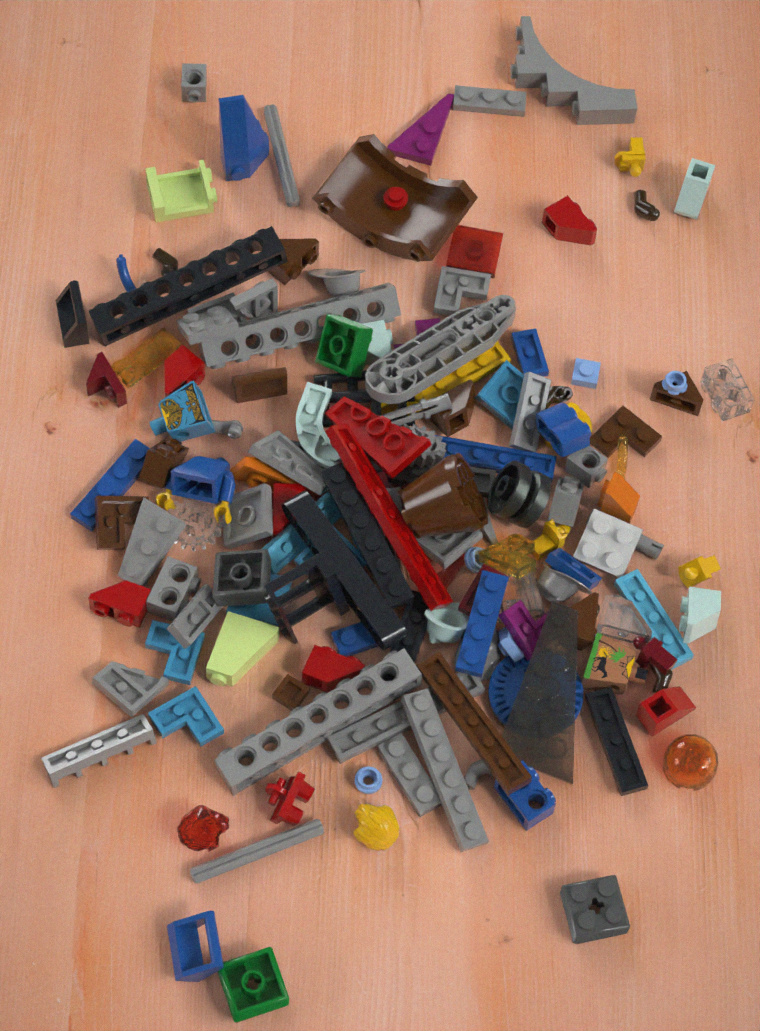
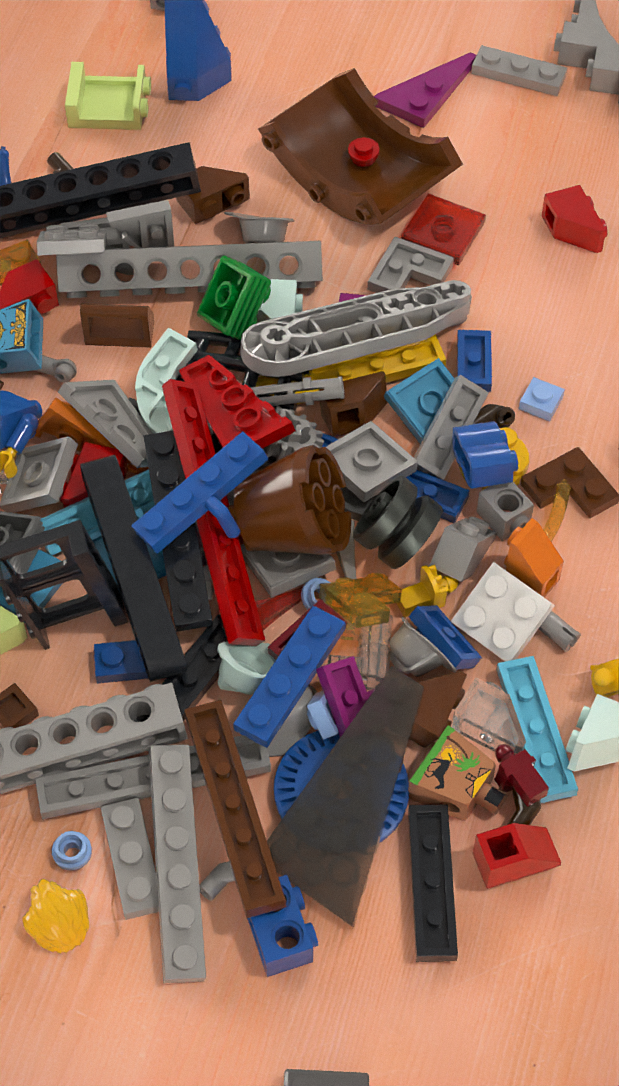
camera: 20 degrees right, 5 degrees down
(281, 155) = (243, 83): light grey axle -> none
(327, 668) = (69, 685): red slope -> none
(383, 507) = (202, 493): none -> blue plate
(483, 450) = (370, 460): none -> light grey plate
(690, 762) = (531, 938): clear orange cylinder -> none

